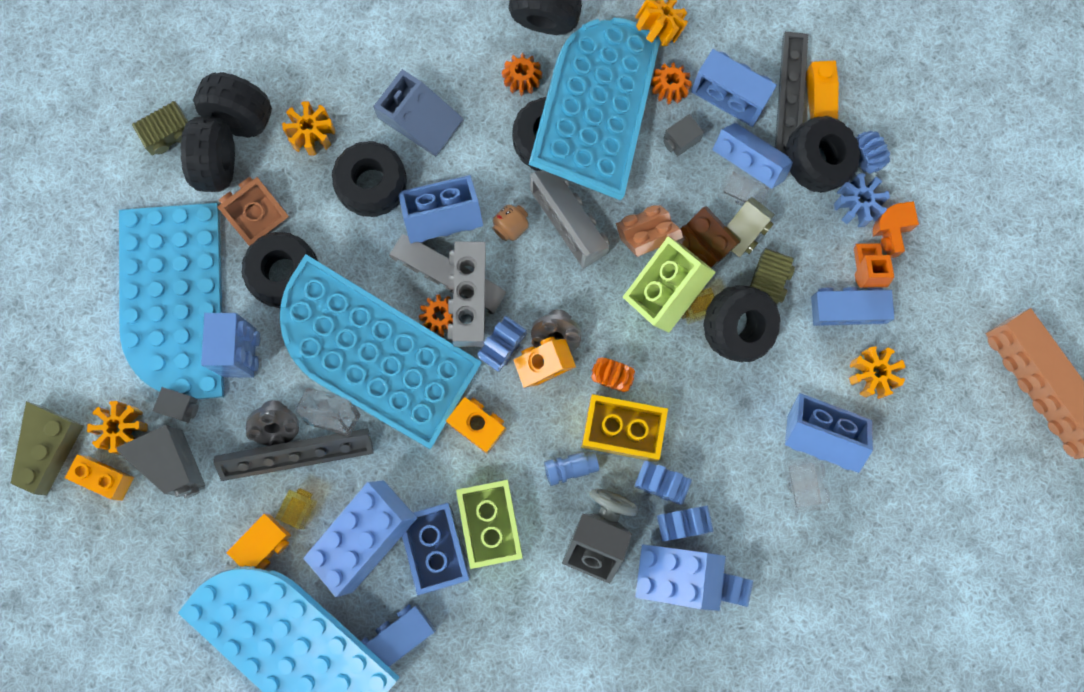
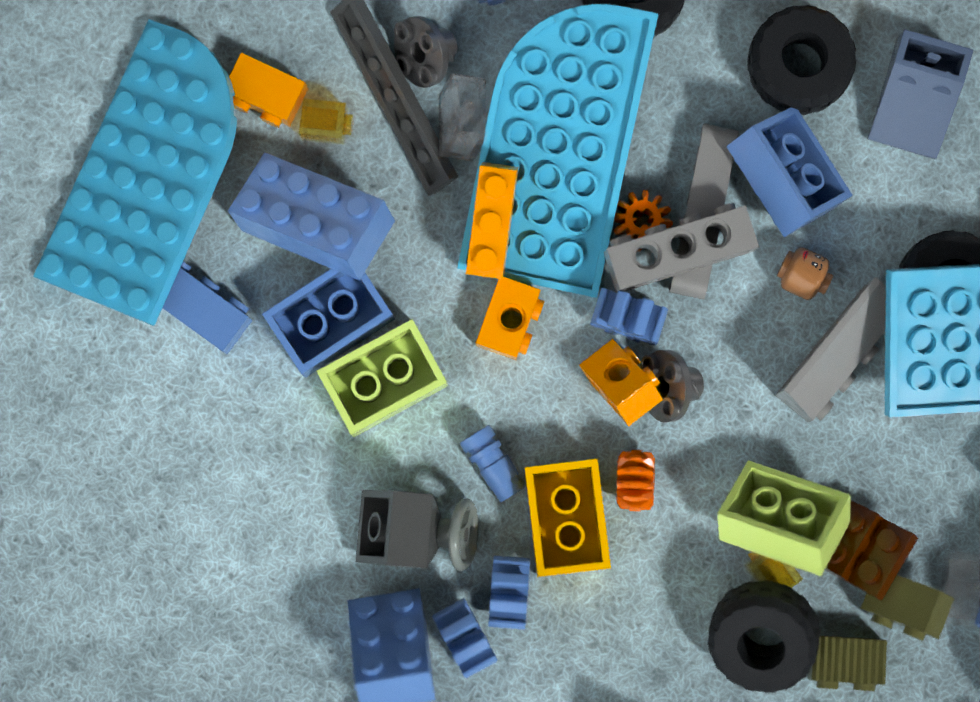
camera: 80 degrees right, 5 degrees up
(406, 412) = (492, 220): none -> light orange brick
(647, 230) = (856, 467): nougat plate -> none

